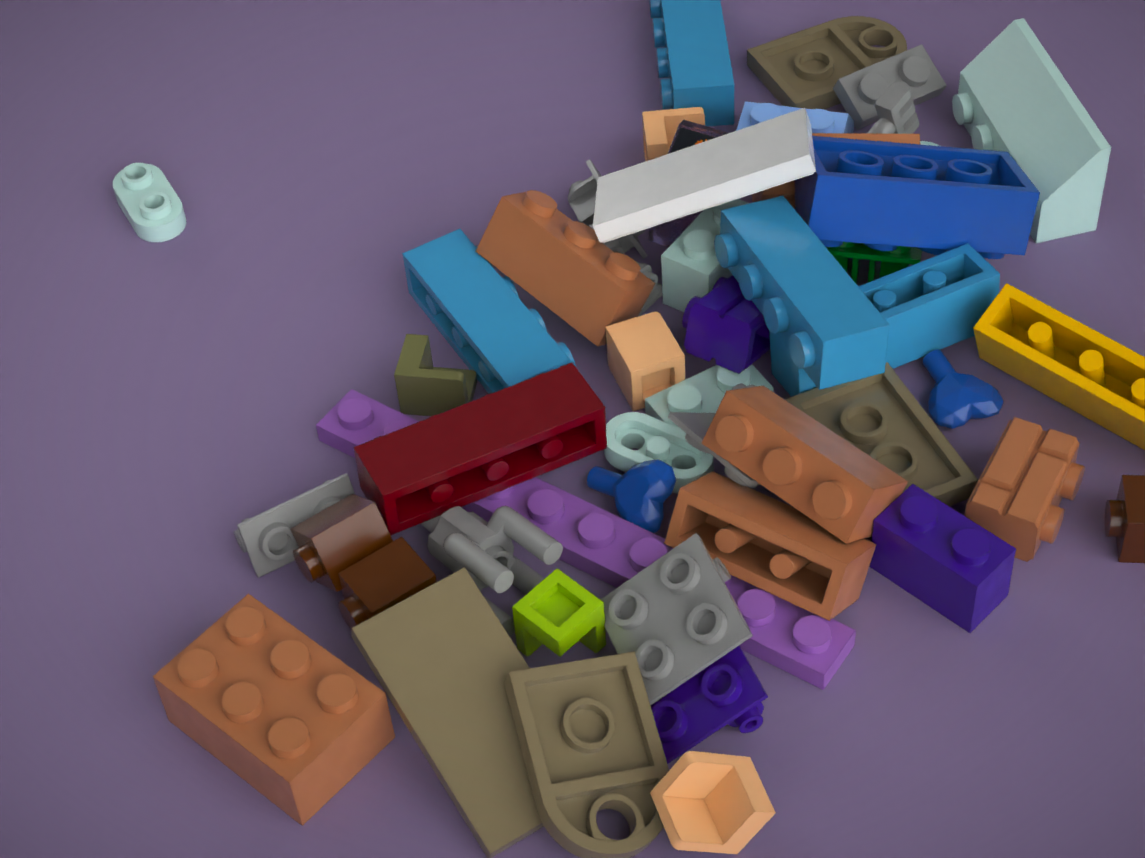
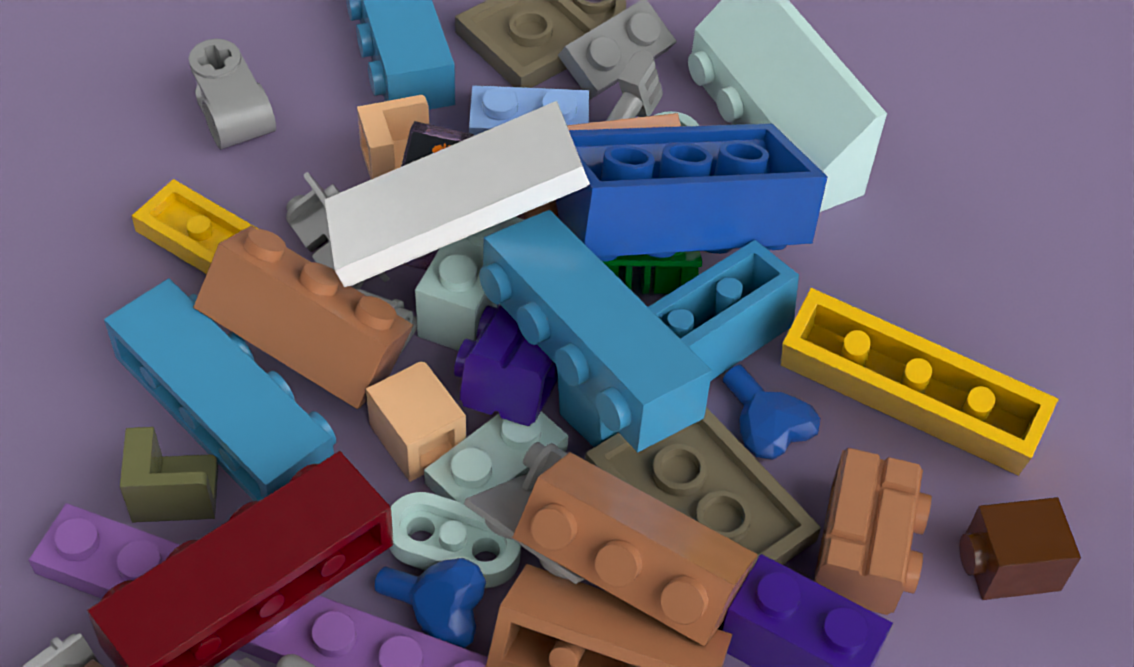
camera: 20 degrees left, 5 degrees up
(477, 191) = (186, 224): none -> yellow plate
(537, 97) = (229, 94): none -> light grey piece

